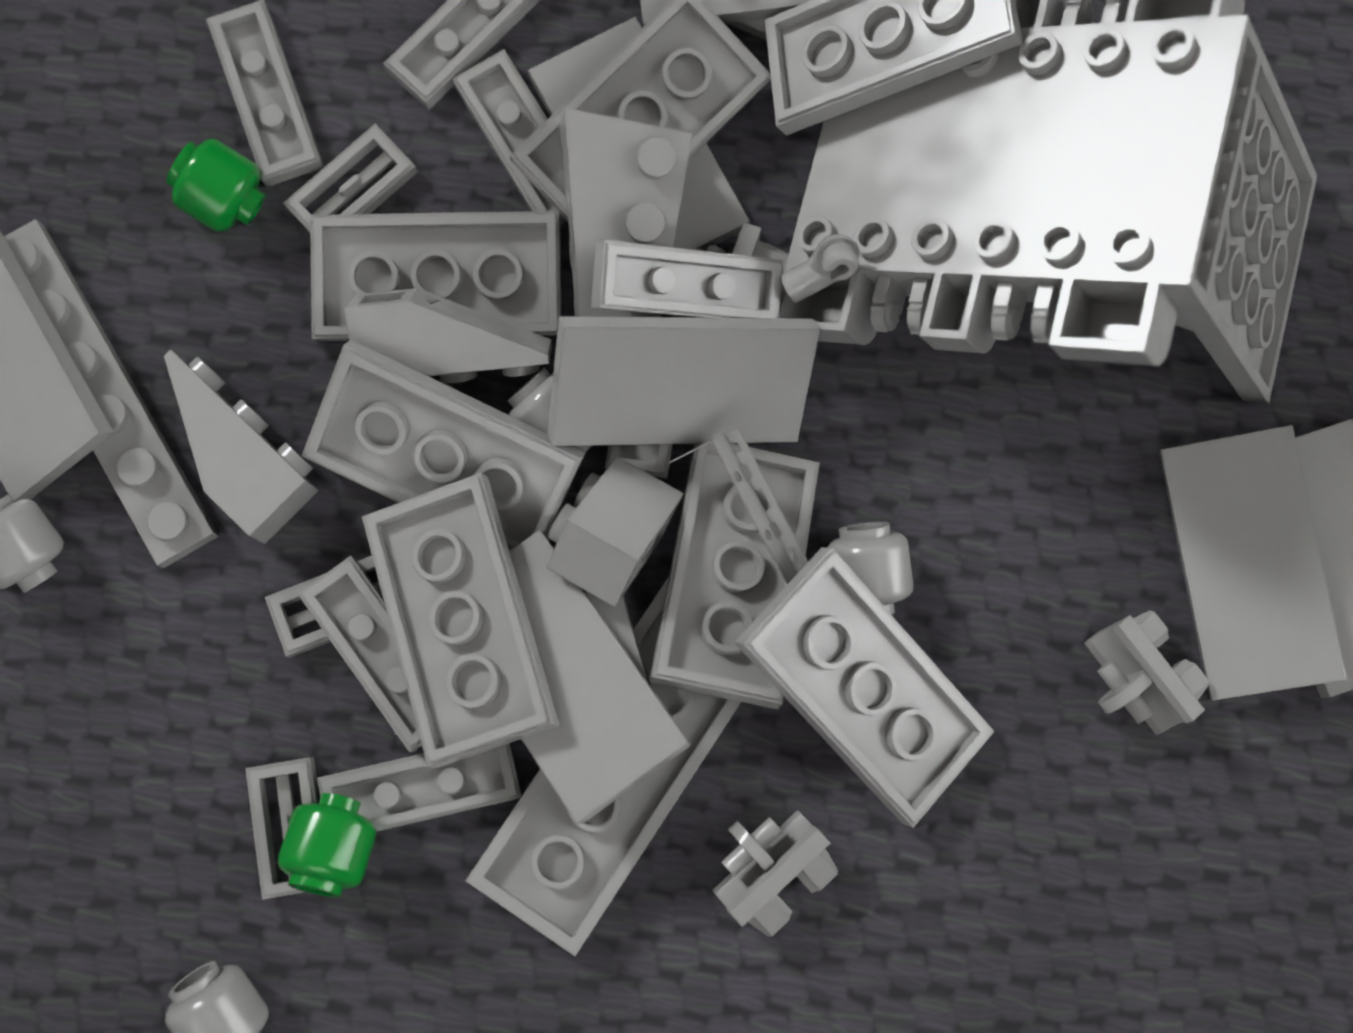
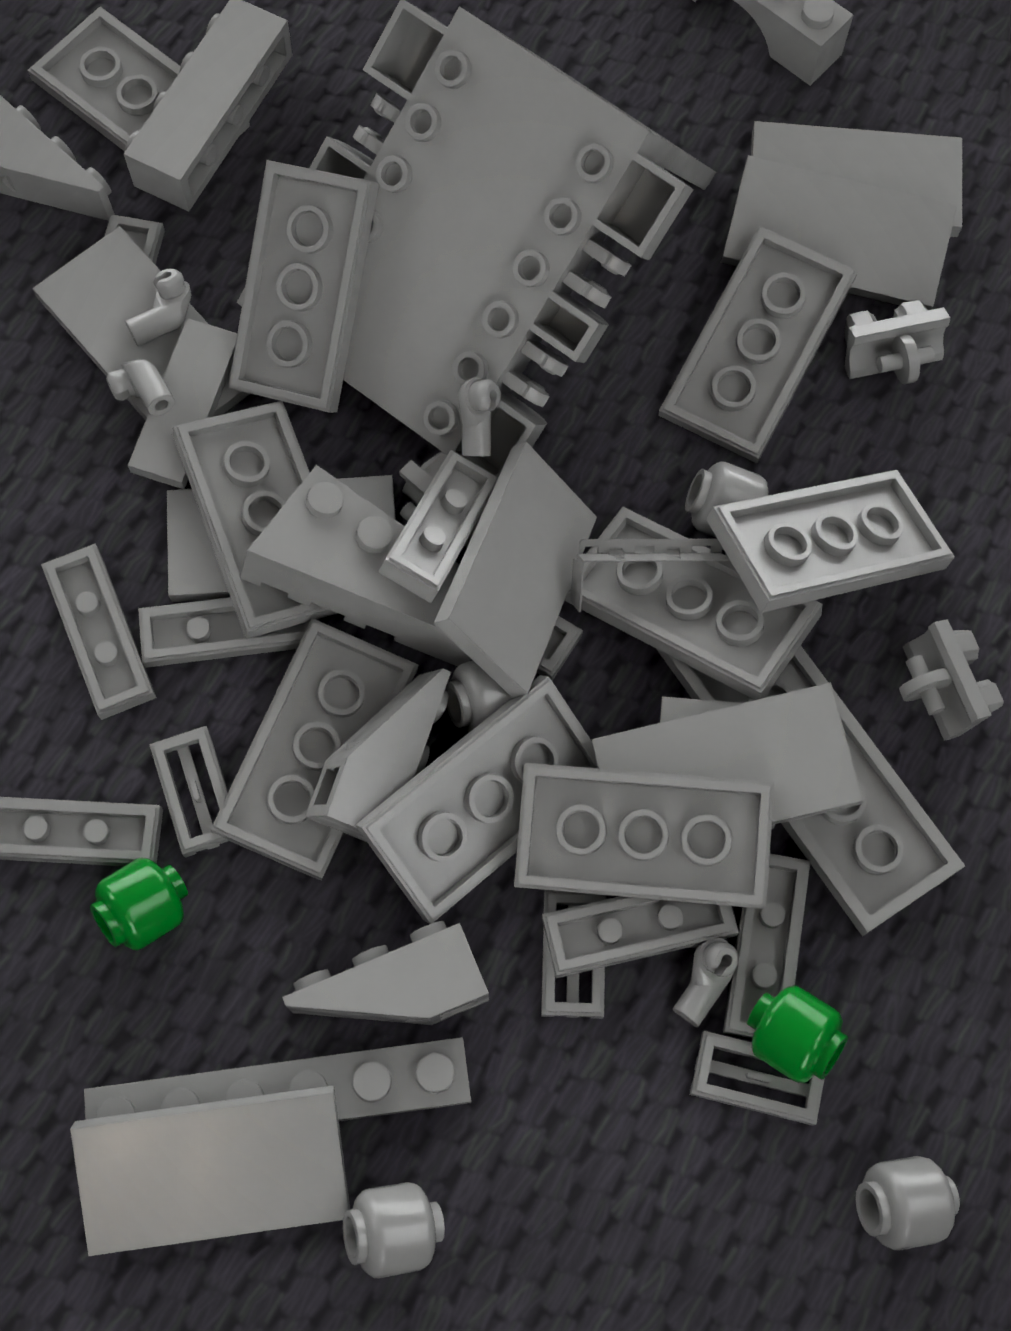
camera: 65 degrees left, 10 degrees down
(366, 742) = (711, 973): none -> light grey arm
(612, 529) = (619, 678): light grey brick -> none
(1074, 528) = (758, 344): none -> light grey tile

